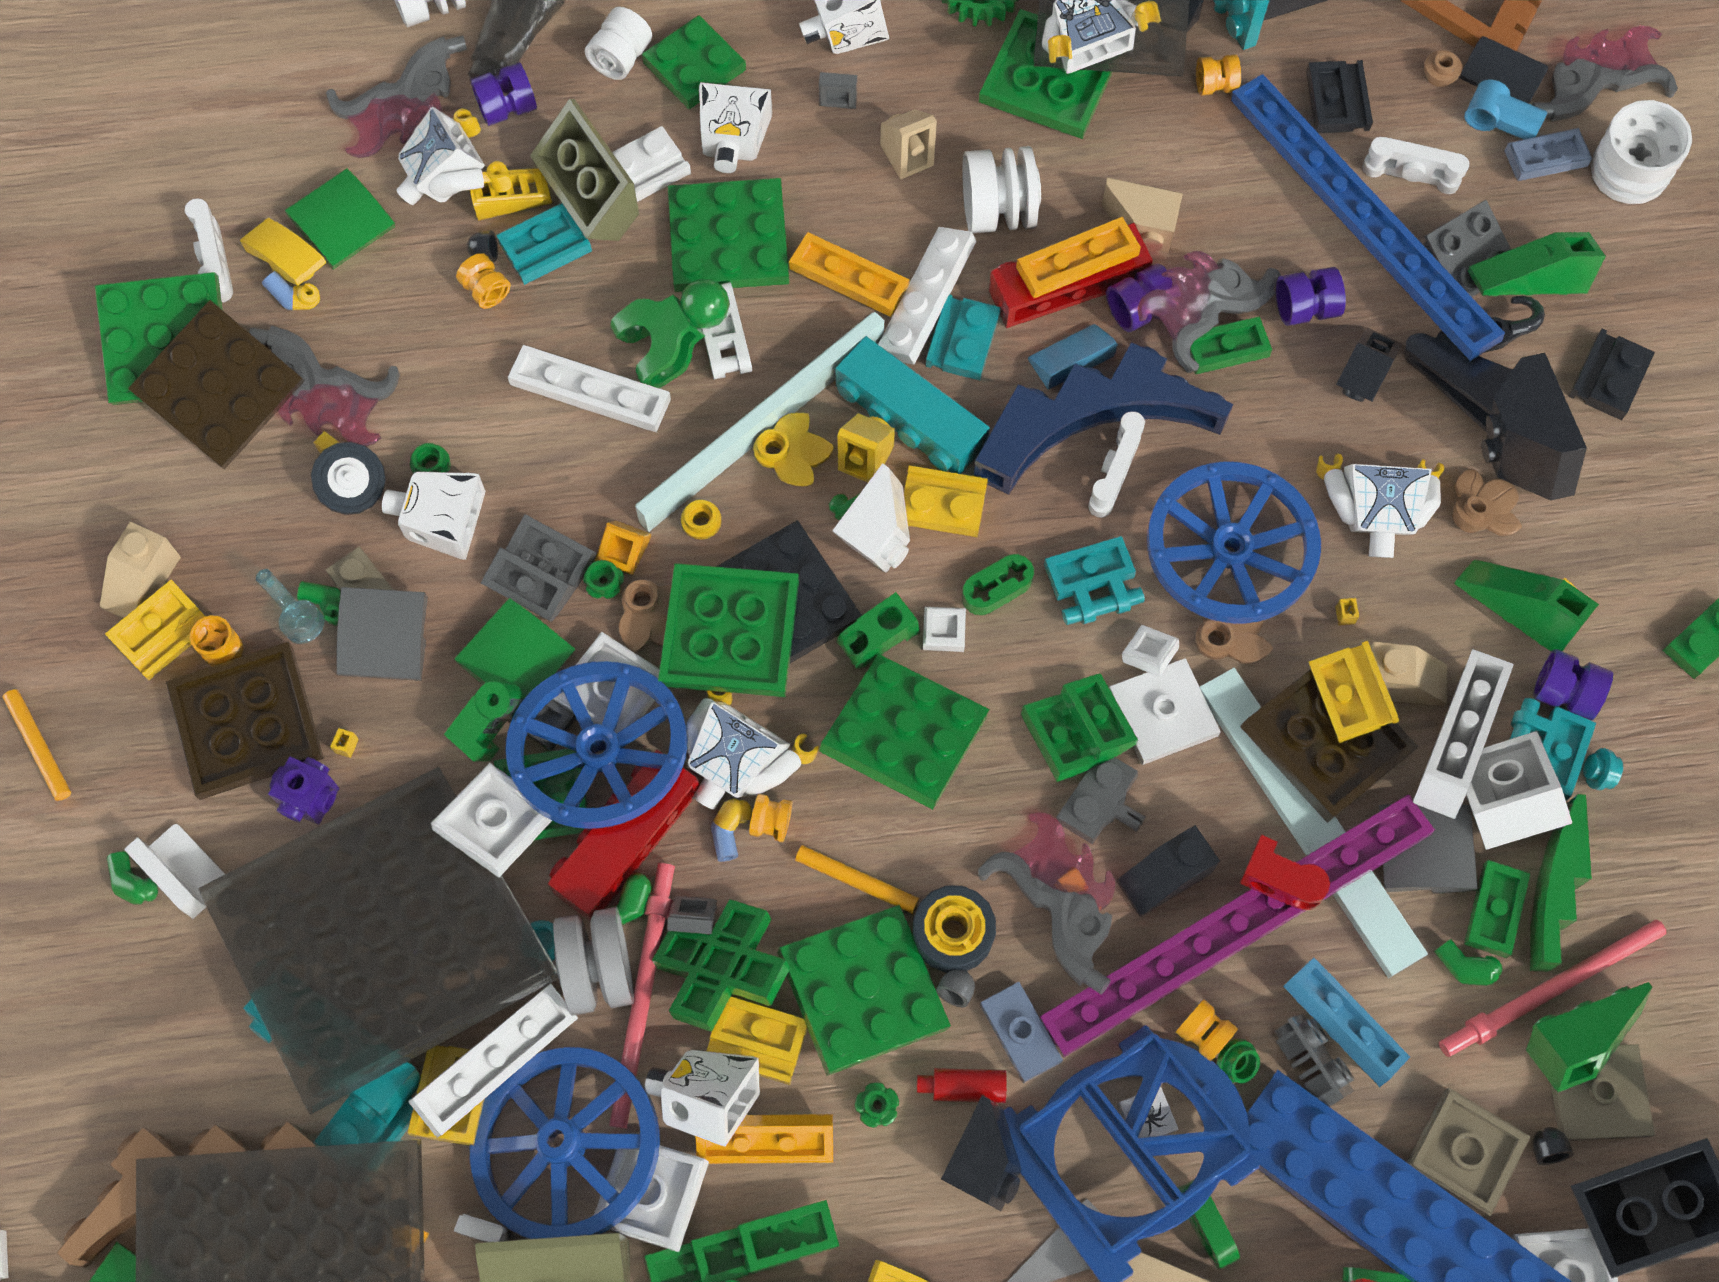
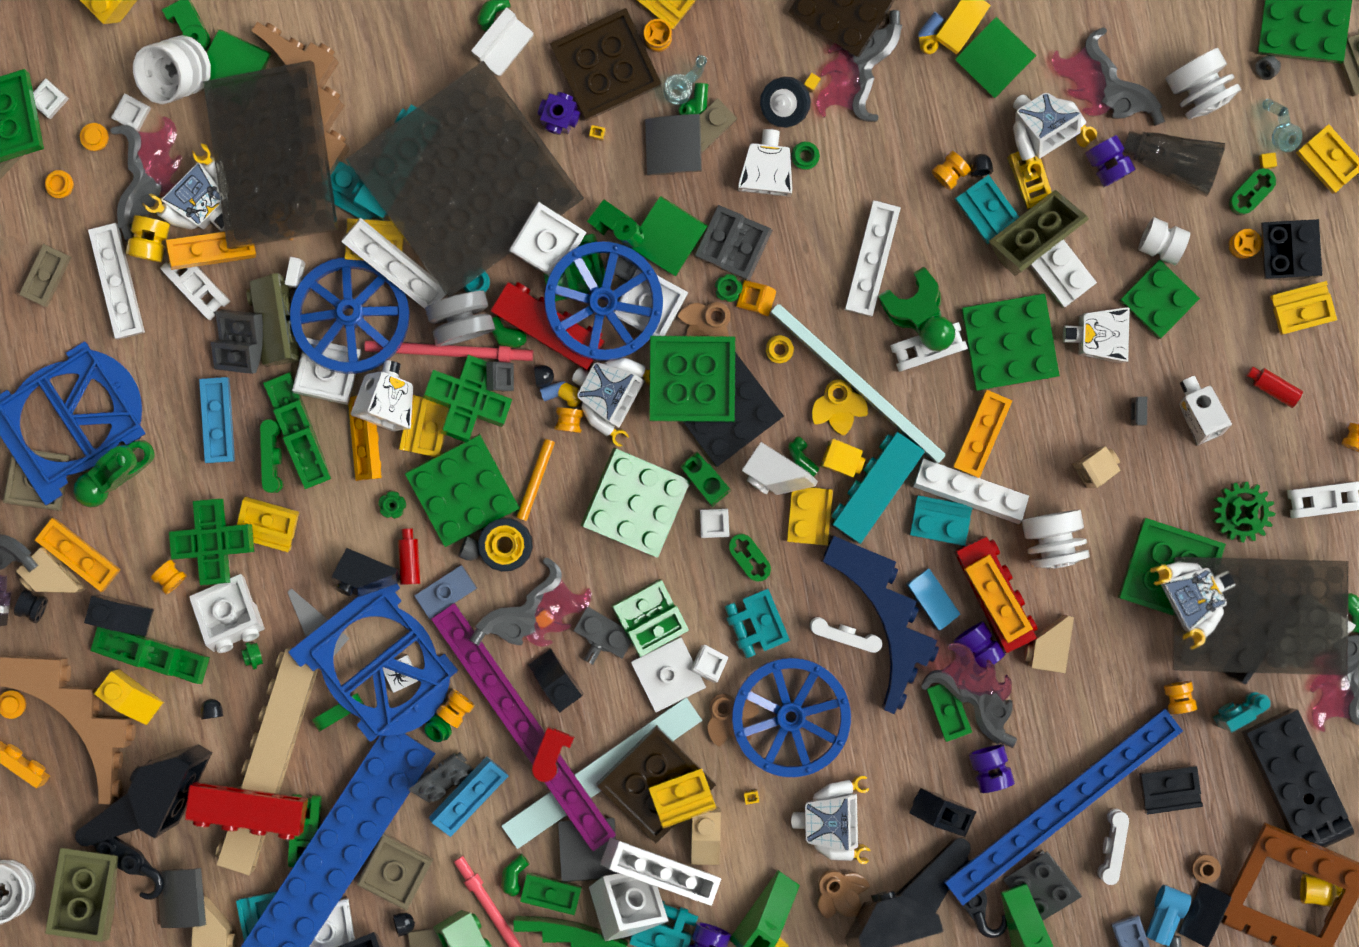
camera: 90 degrees right, 20 degrees up
(699, 853) = (543, 375): none -> black hinge

